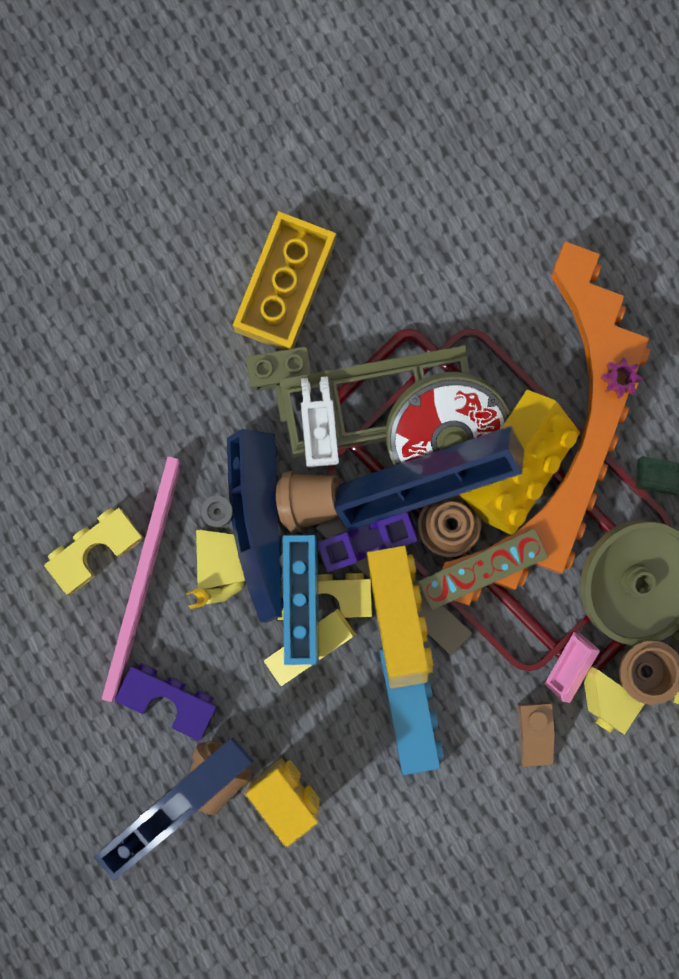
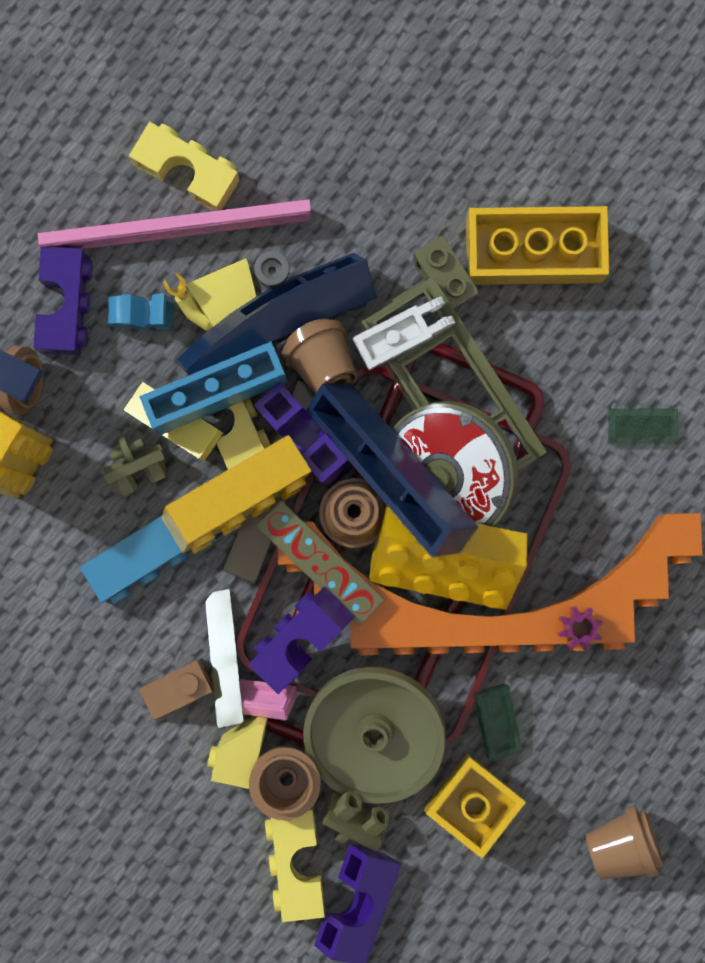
camera: 70 degrees right, 0 degrees up
(203, 638) = (137, 312): none -> dark azure leg
(327, 695) = (122, 471): none -> olive hips
(469, 257) = (642, 426): none -> clear green tile
(526, 683) = (224, 659): none -> sticker
(530, 590) = (317, 621): none -> dark purple arch

